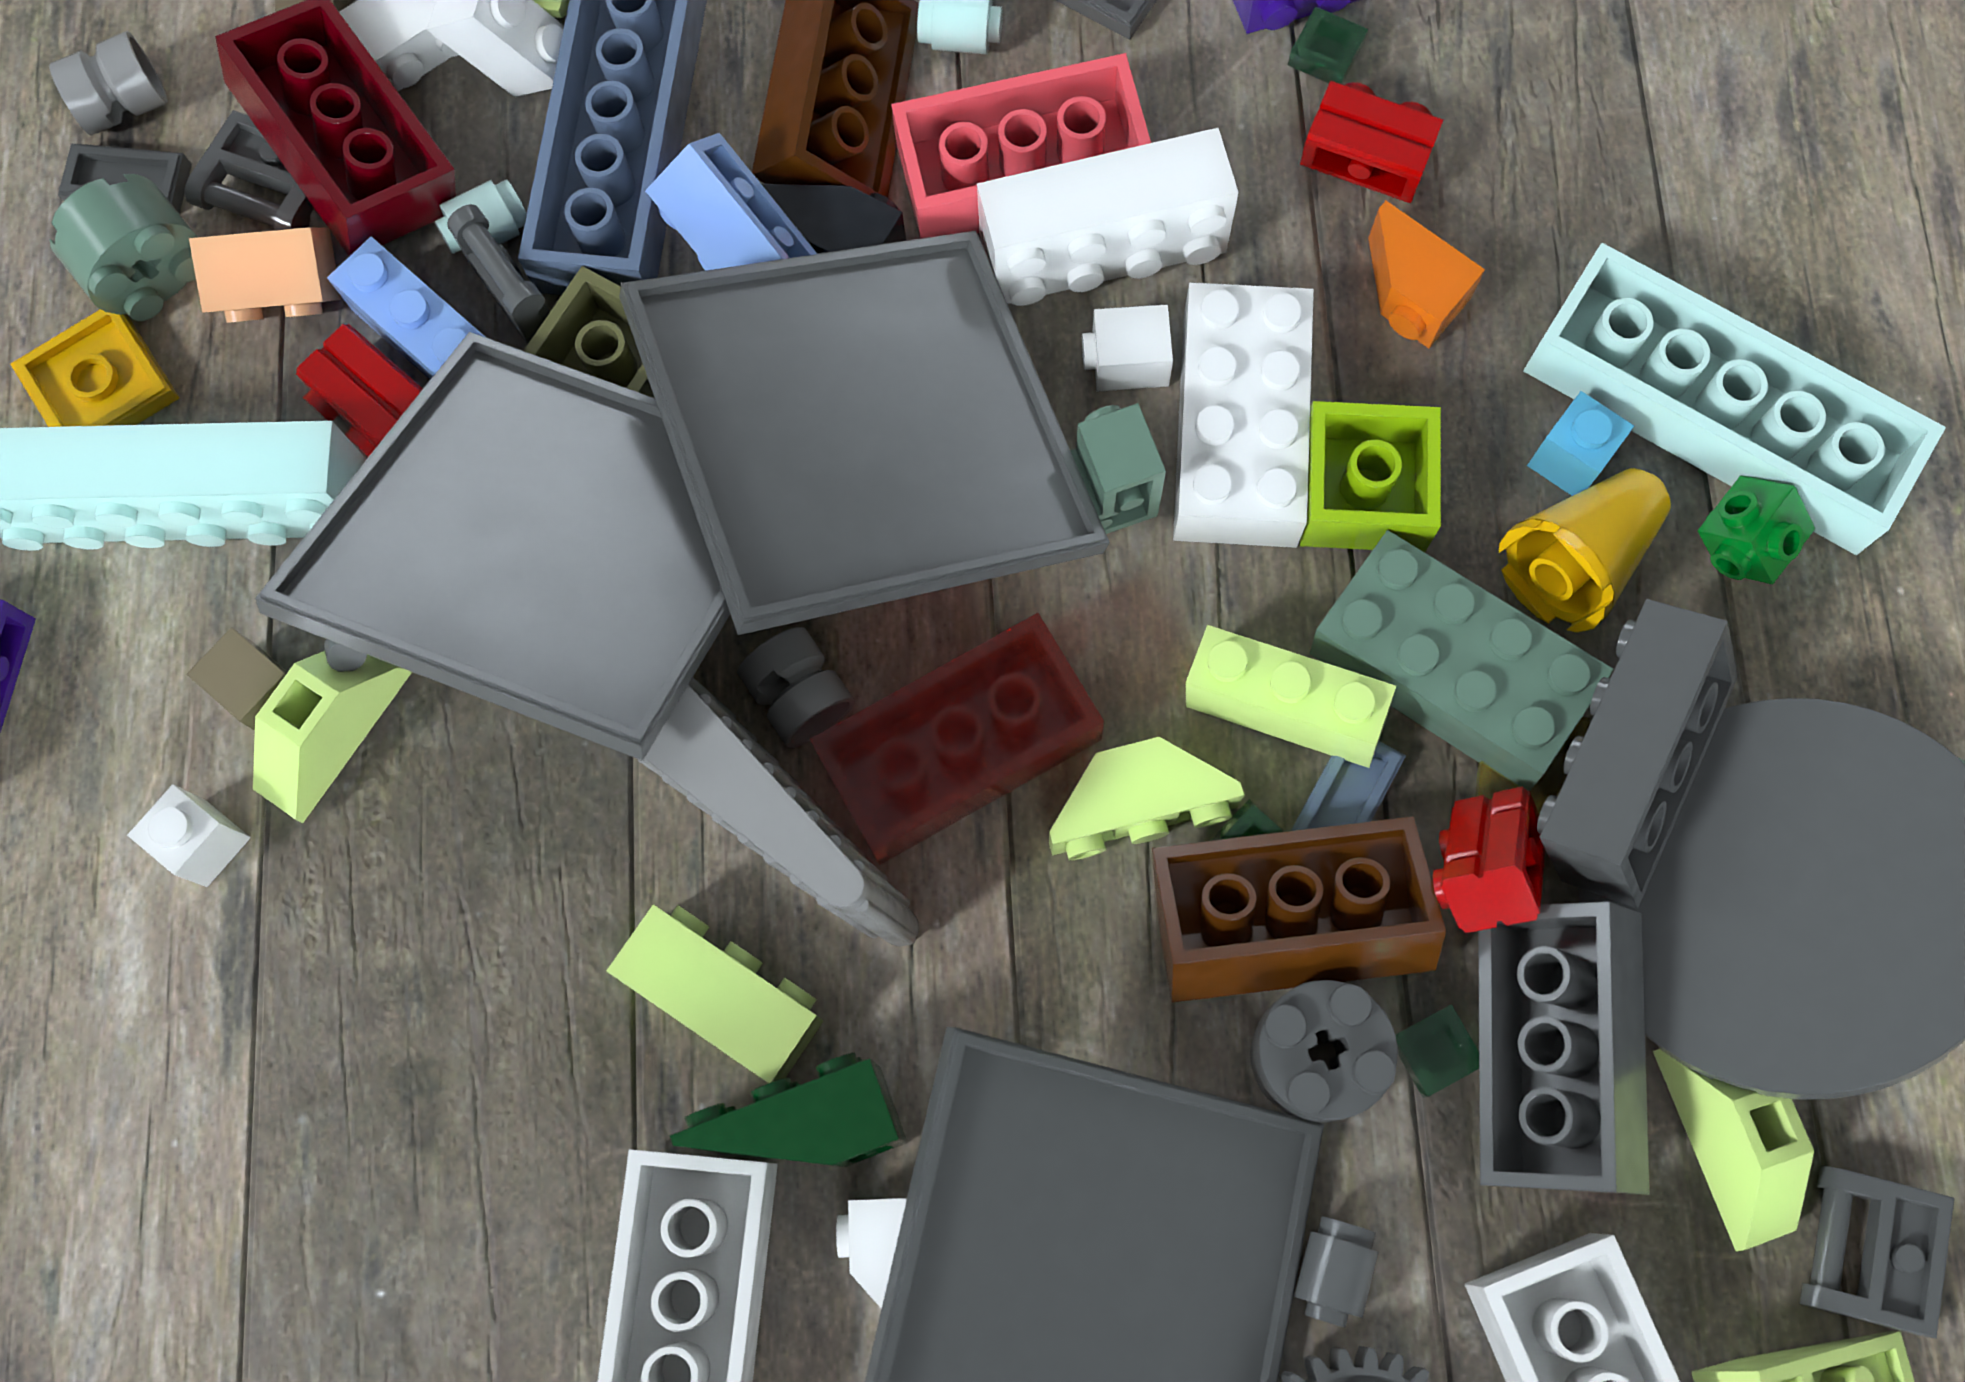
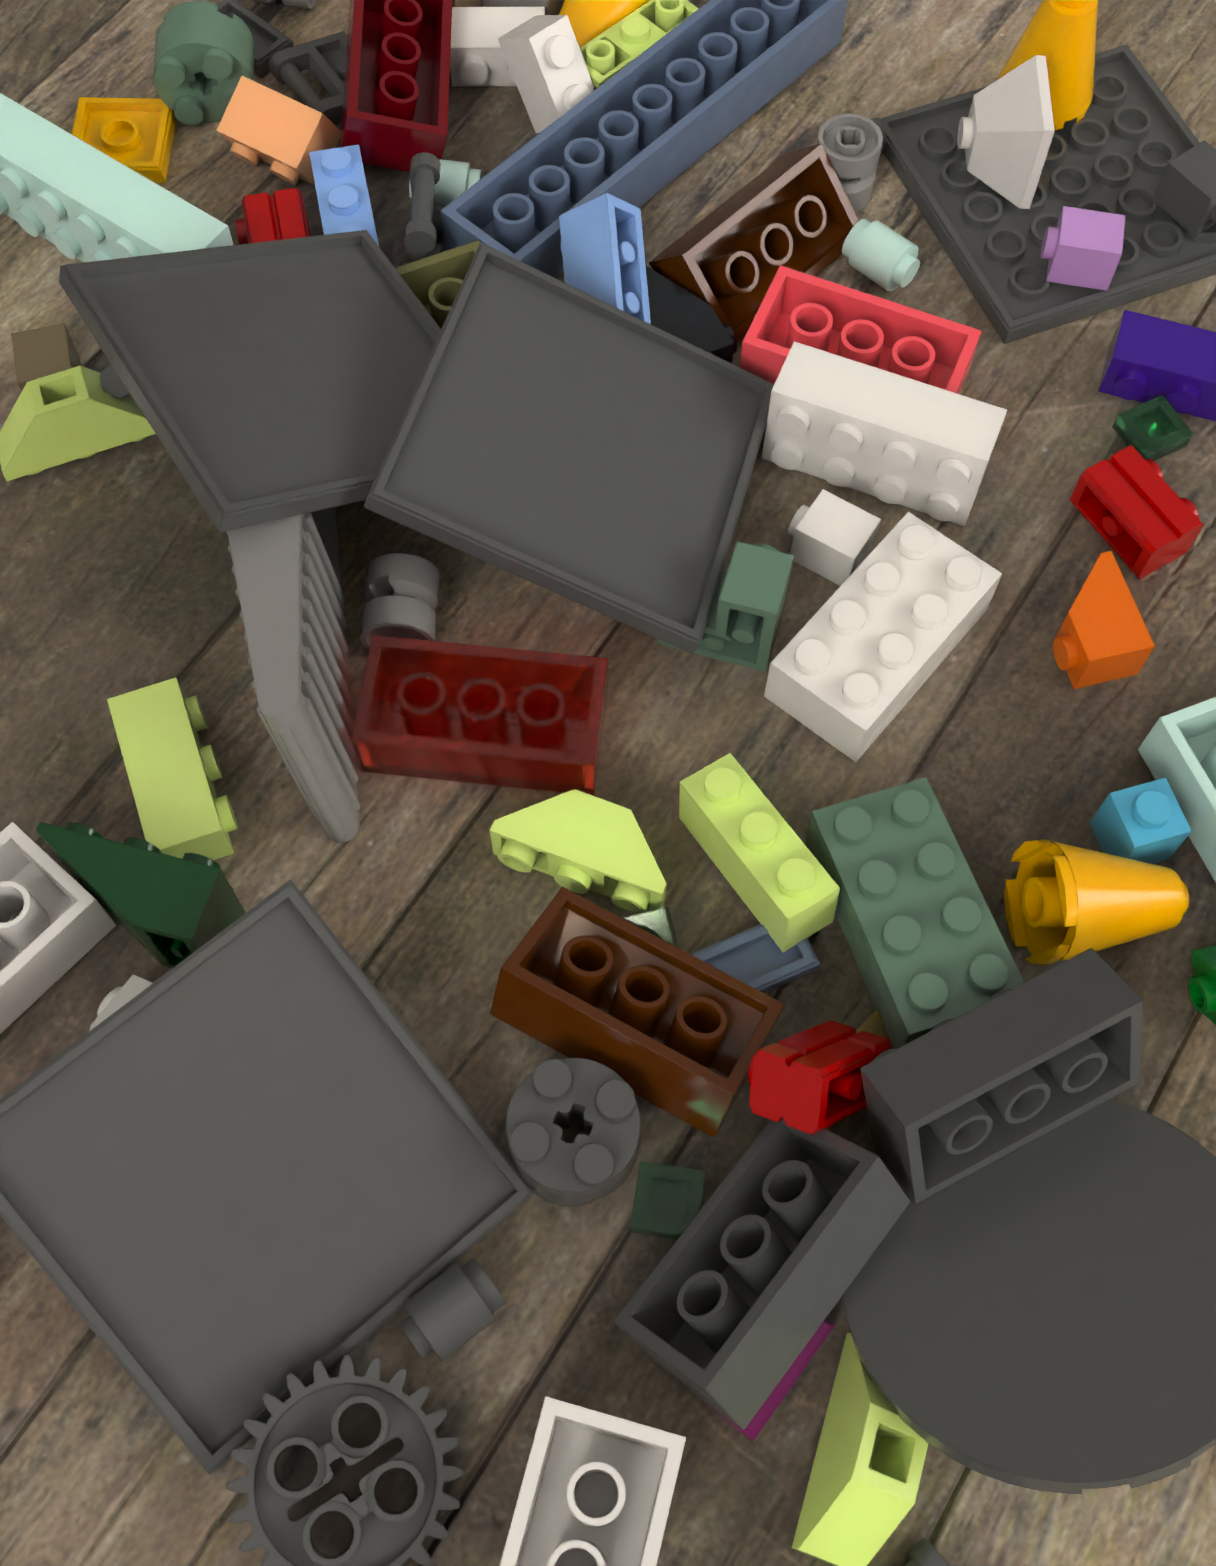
camera: 30 degrees right, 10 degrees down
(1373, 474) = (946, 729): lime brick -> none

